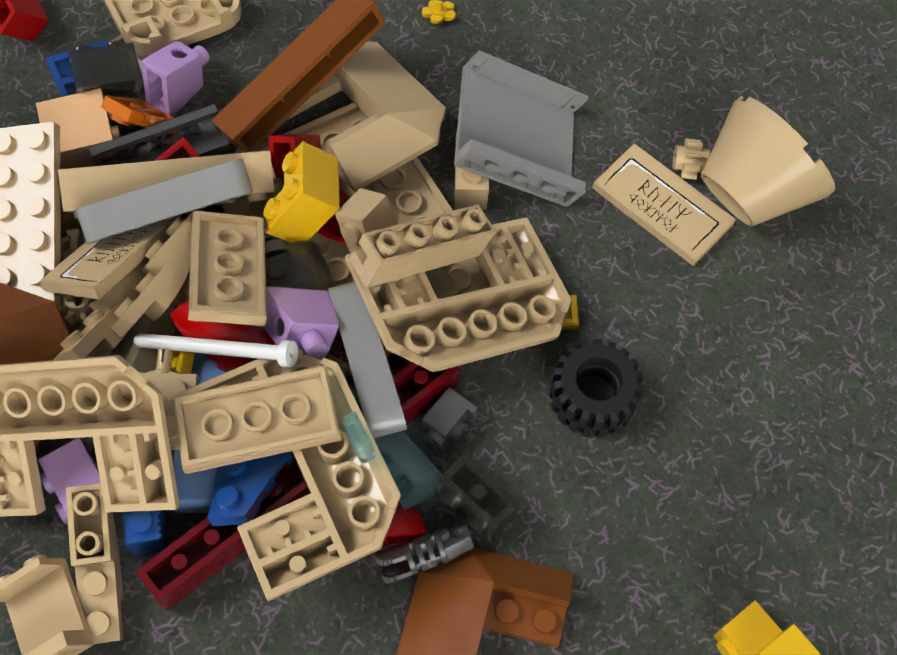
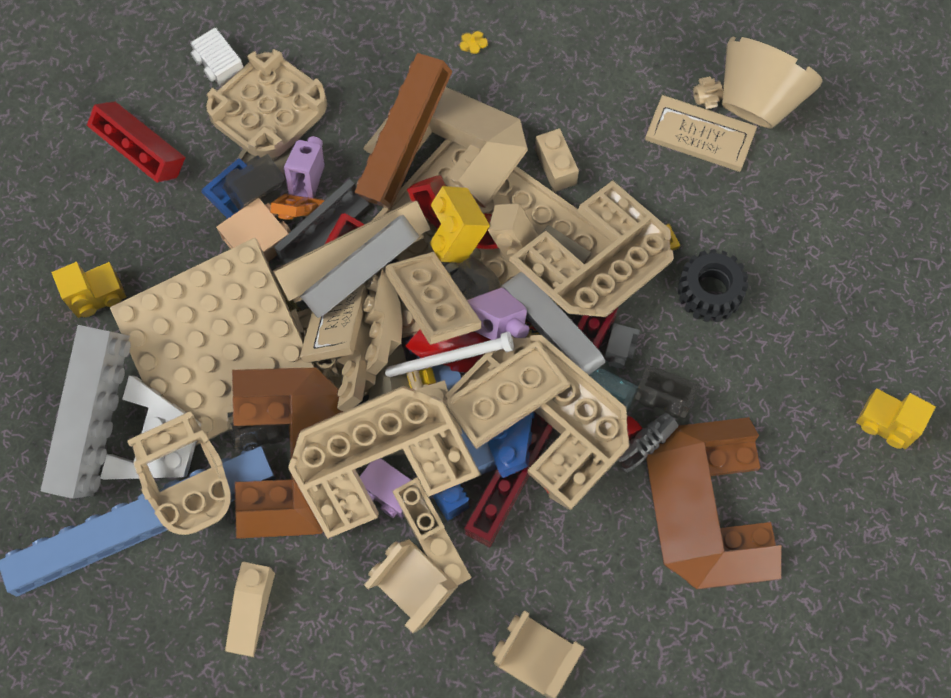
camera: 15 degrees left, 5 degrees up
(358, 438) = (584, 380): clear light blue tile -> none
(421, 245) = (560, 230): tan brick -> none
(518, 129) = (578, 116): light grey panel -> none

